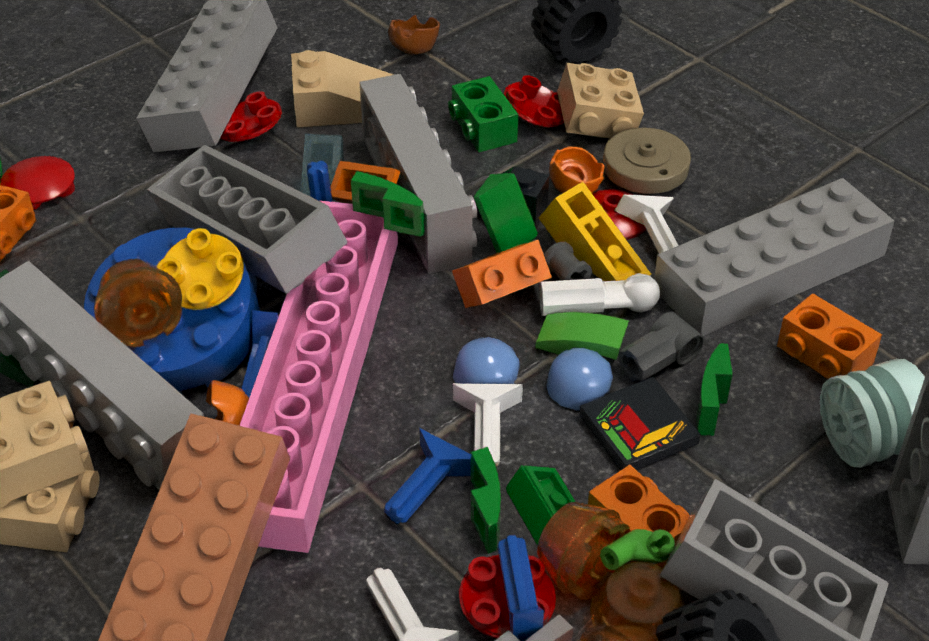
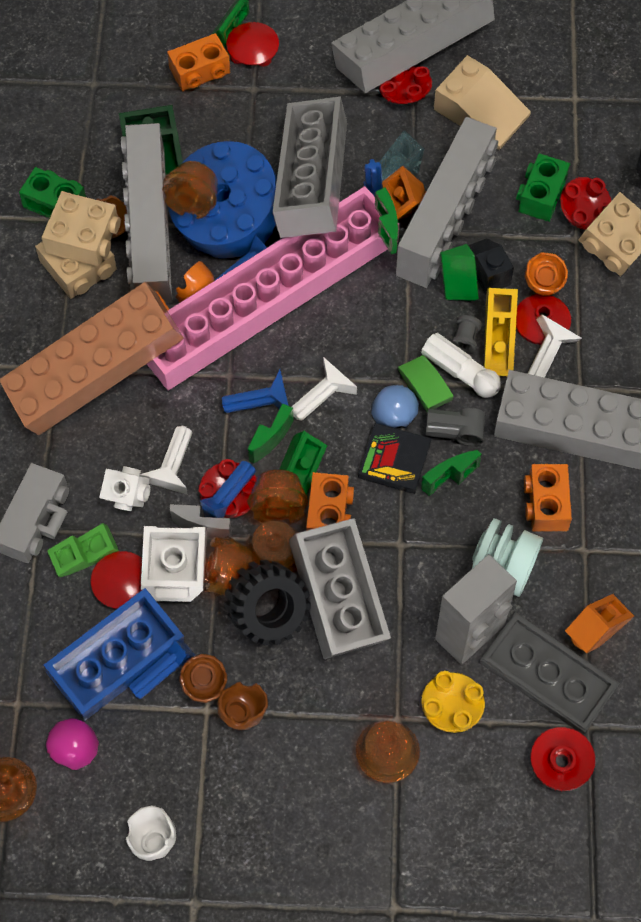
camera: 45 degrees right, 20 degrees up
(204, 268) = (242, 192): yellow dish -> none
(412, 35) = (571, 88): dark orange hair -> none
(486, 362) = (356, 360): medium blue hair -> none
(501, 274) = (419, 311): orange brick -> none
(638, 546) = (296, 517): bright green arm -> none
(646, 160) = (600, 299): dark tan wheel -> none

